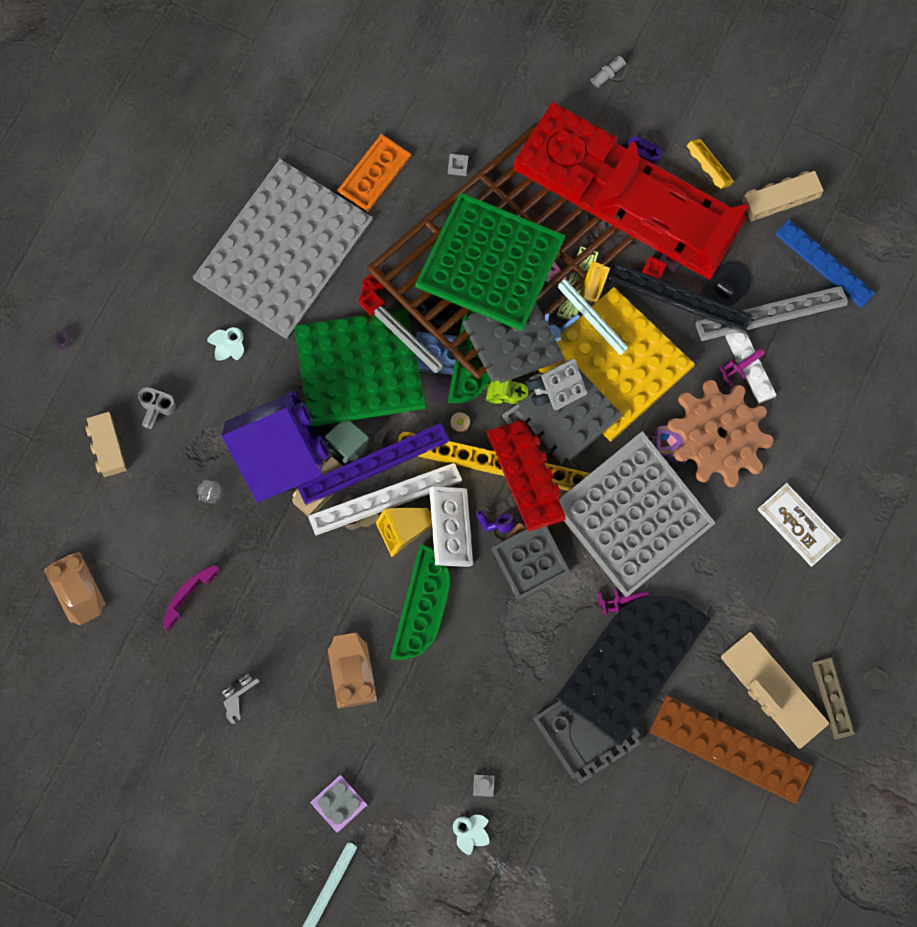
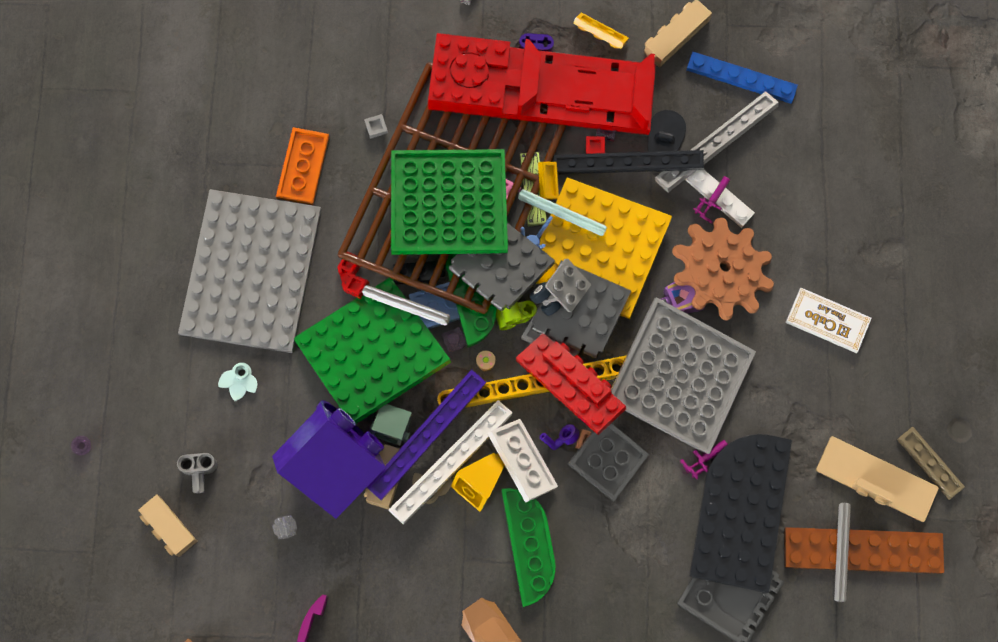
camera: 25 degrees left, 0 degrees up
(708, 740) = (842, 552): none -> light grey axle

